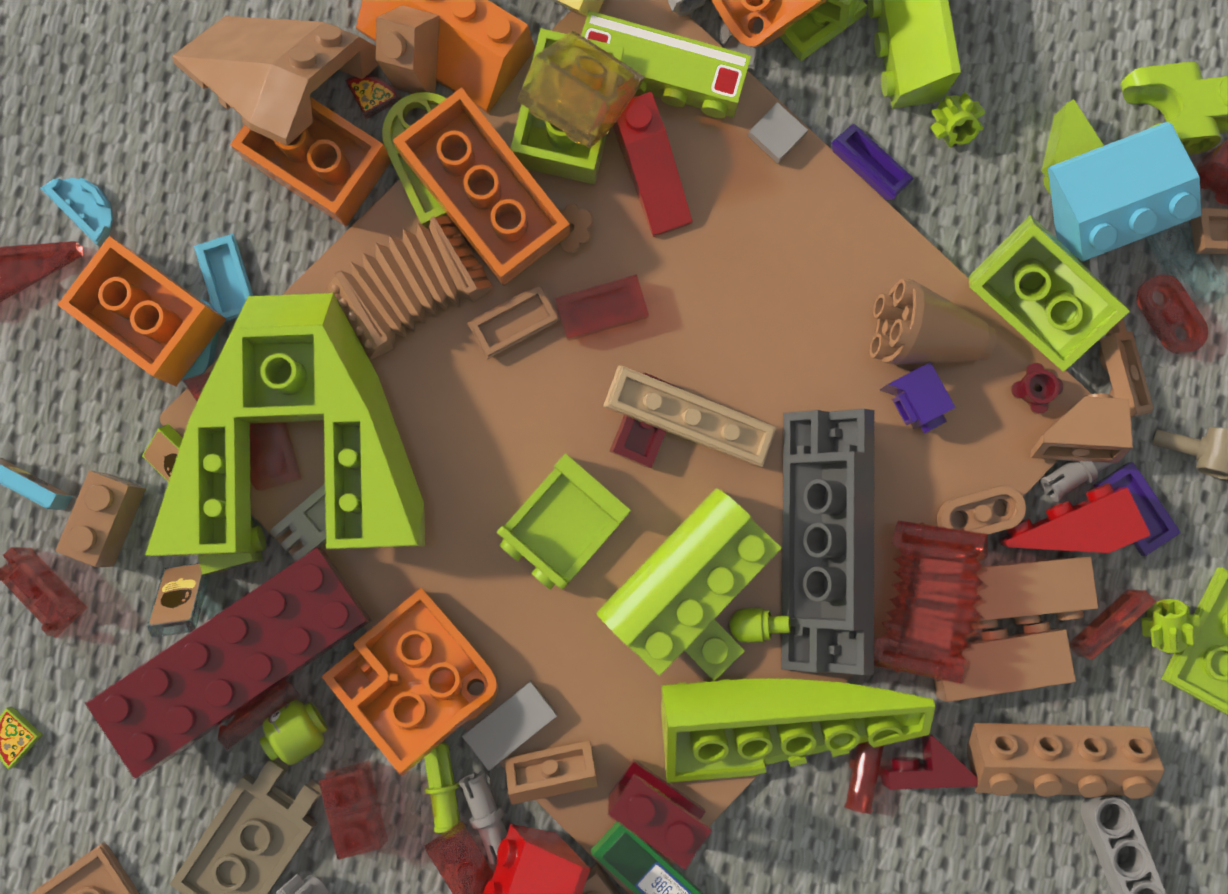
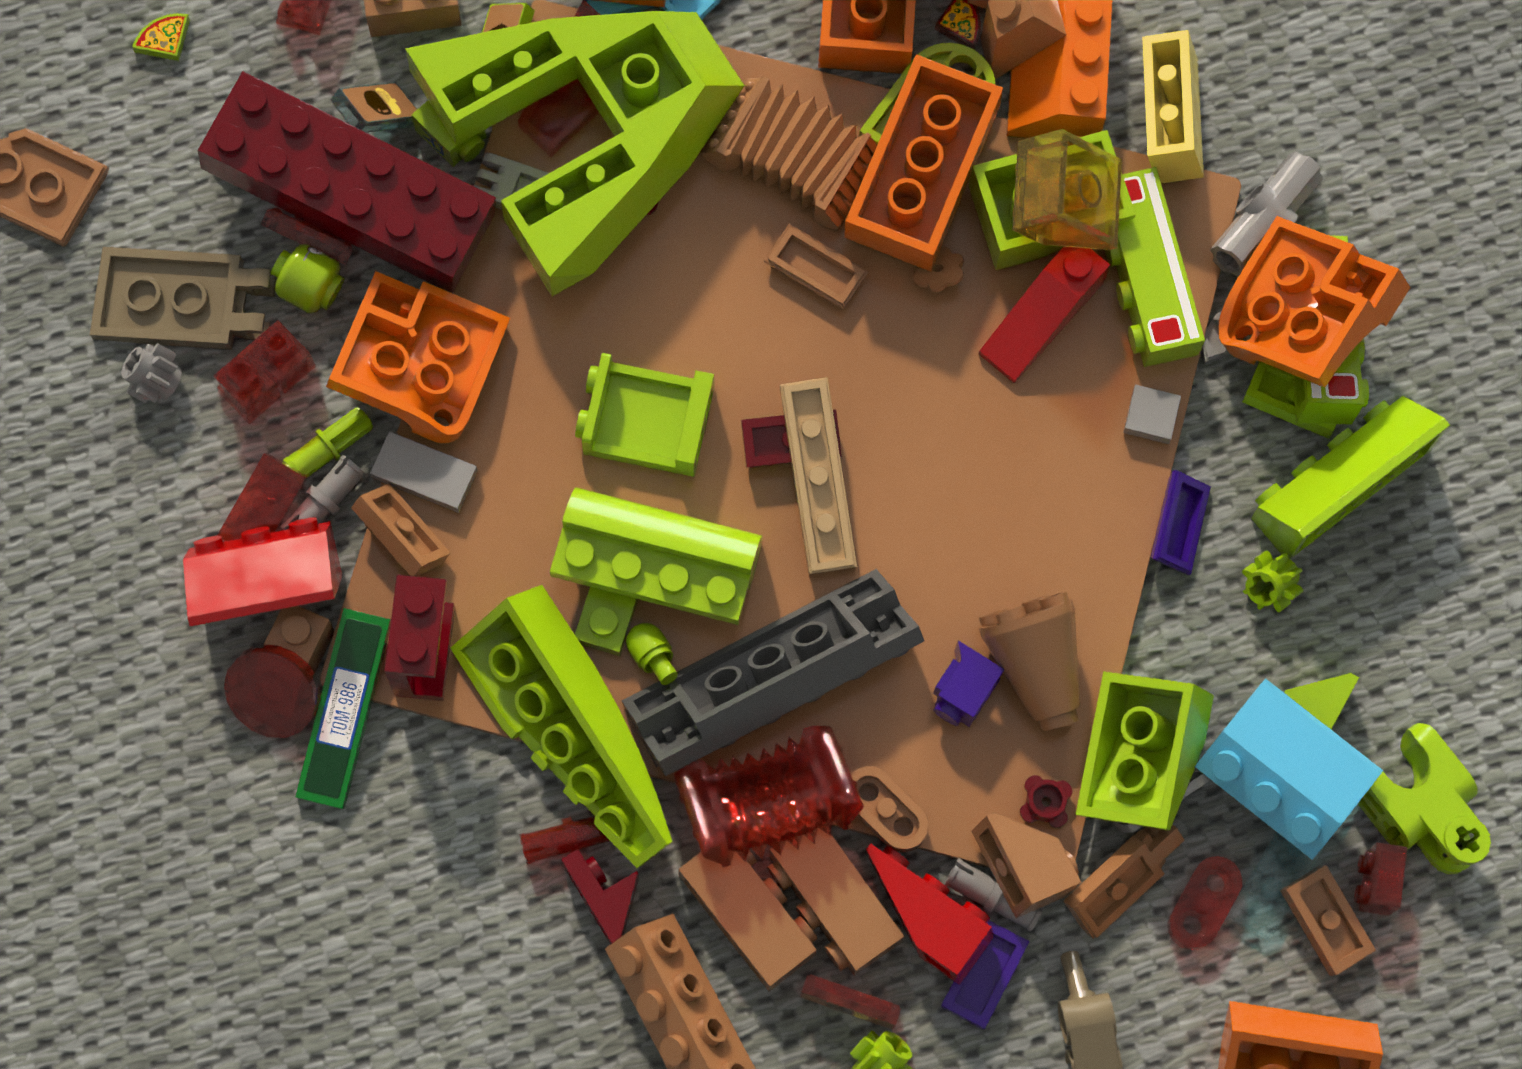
camera: 55 degrees right, 10 degrees down
(602, 307) = (877, 339): clear red plate -> none

